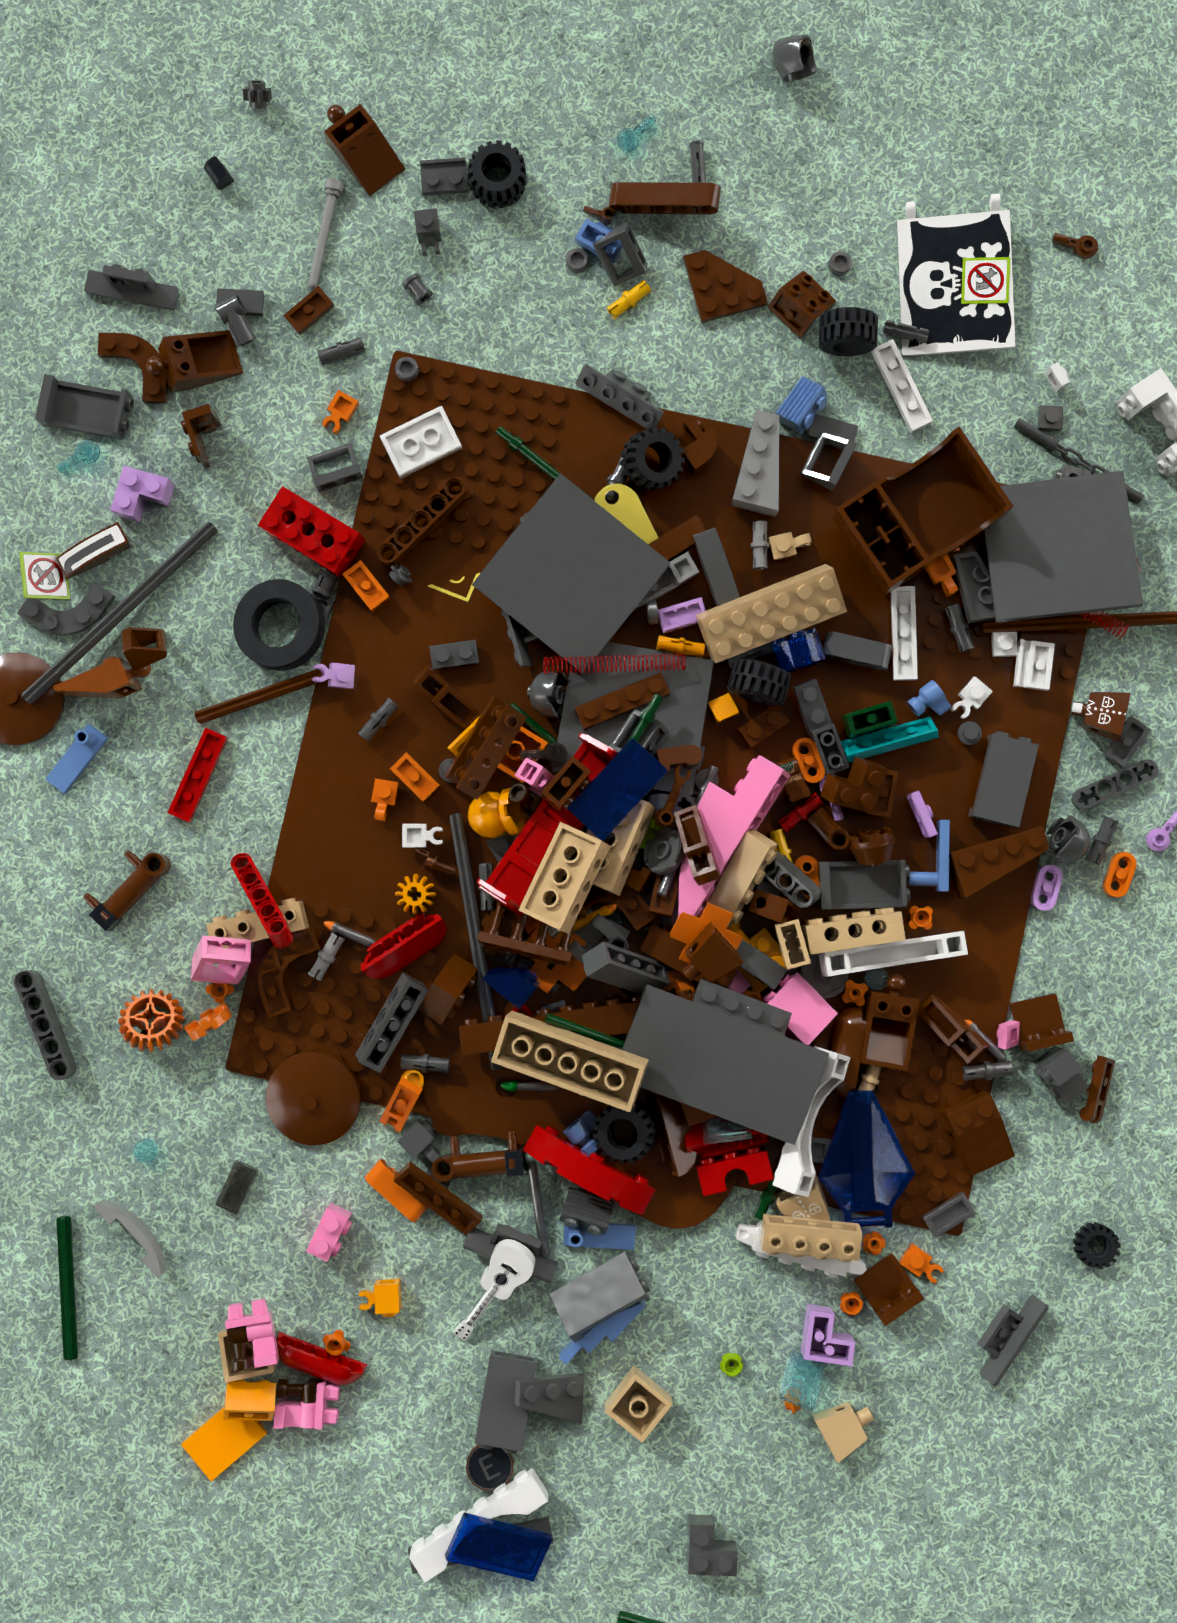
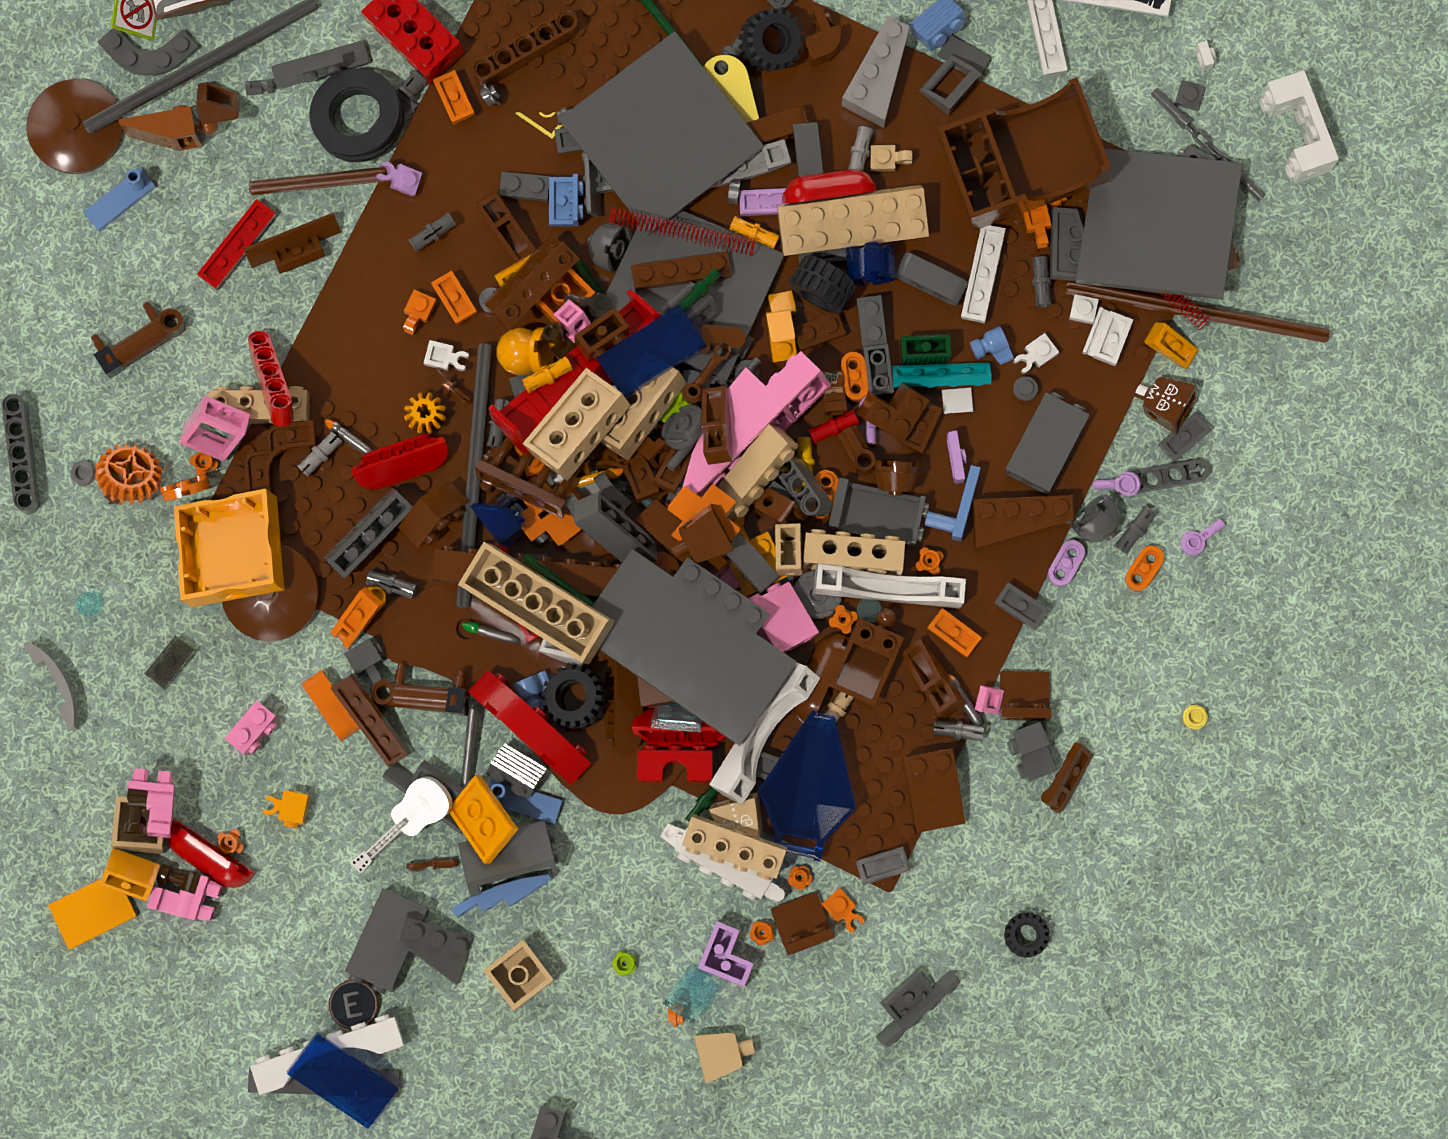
camera: 15 degrees right, 5 degrees down
(108, 1027) = (83, 473): none -> flat silver tile
(178, 620) = (256, 87): none -> dark grey piece
(233, 584) = (320, 64): none -> dark grey bracket
(253, 763) = (295, 245): none -> reddish brown bracket
(263, 1070) = (229, 548): none -> light orange tile
(480, 601) = (564, 140): none -> dark grey plate
(495, 660) = (564, 201): none -> medium blue bracket
(523, 834) = (547, 374): none -> light orange pin
(533, 1314) = (436, 863): none -> reddish brown piece
(568, 1270) = (482, 819): none -> light orange tile
(731, 738) = (781, 335): none -> light orange slope
(741, 587) = (828, 185): none -> red brick
(908, 759) = (957, 400): none -> white sticker
(961, 980) = (954, 633): none -> orange plate
(1017, 940) = (1021, 606): none -> dark grey plate
(1086, 800) = (1127, 484): none -> lavender plate
(1092, 657) = (1171, 344): none -> light orange slope

